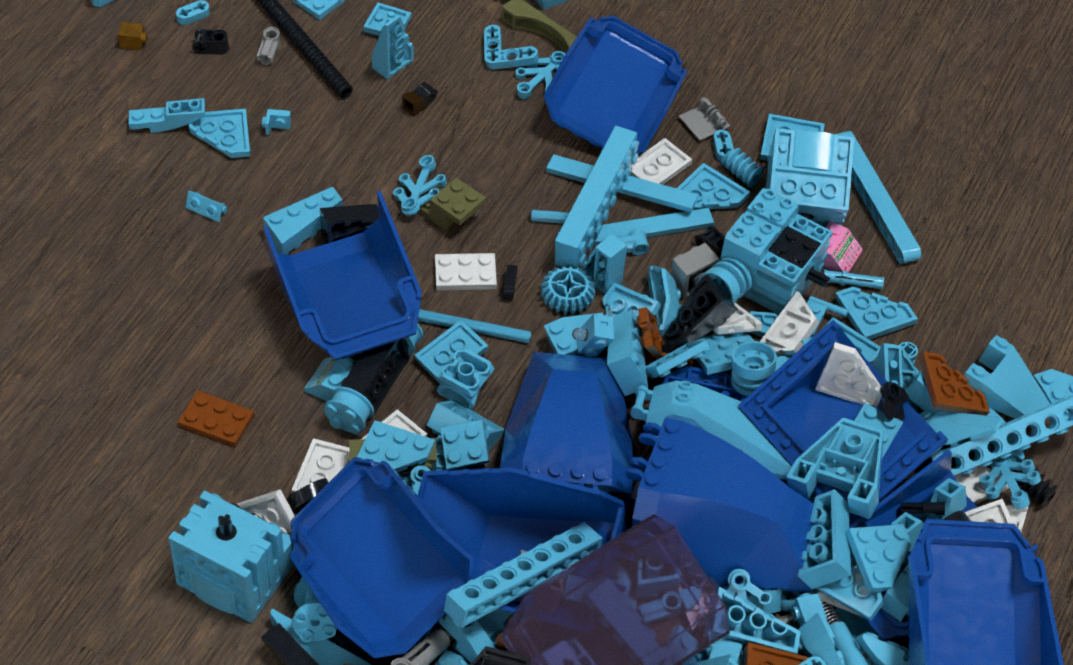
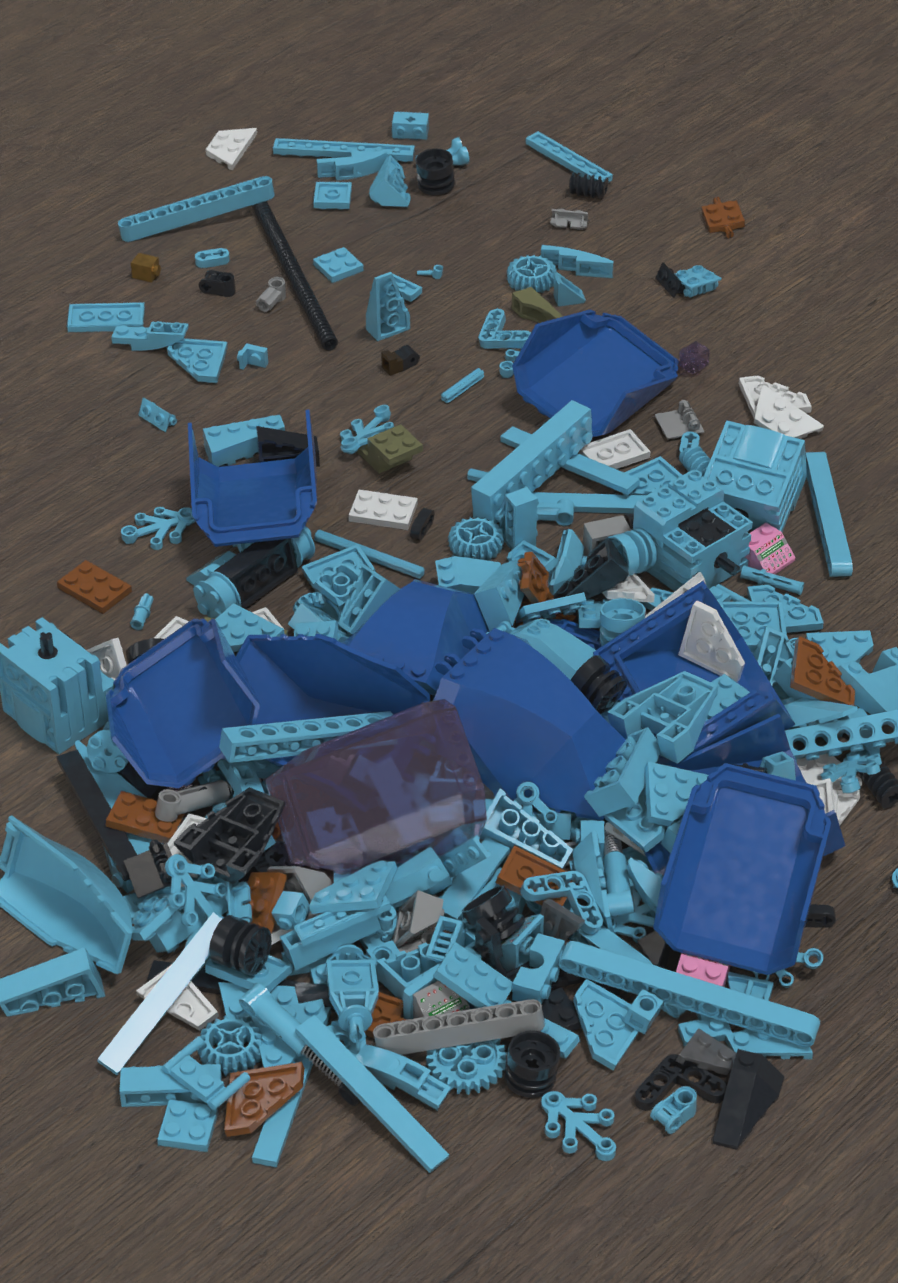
camera: 20 degrees right, 10 degrees down
(111, 99) = (104, 316): none -> medium azure tile
(256, 332) = (181, 518): none -> medium azure plant
(275, 438) = (142, 612): none -> medium azure axle
(441, 395) = (315, 600): none -> medium azure gear
(488, 116) = (462, 385): none -> medium azure axle
(500, 388) = (368, 595): none -> medium azure wedge
(594, 335) = (475, 570): medium azure piece -> none
(693, 47) = (694, 357): none -> clear purple brick
(766, 448) = (599, 683): none -> black wheel
(778, 79) = (751, 389): none -> white plate
(797, 99) = (782, 416): none -> white wing
(865, 329) = (753, 617): none -> medium azure plate
(893, 400) = (752, 673): black plate -> none
(940, 338) = (843, 646): none -> medium azure plate

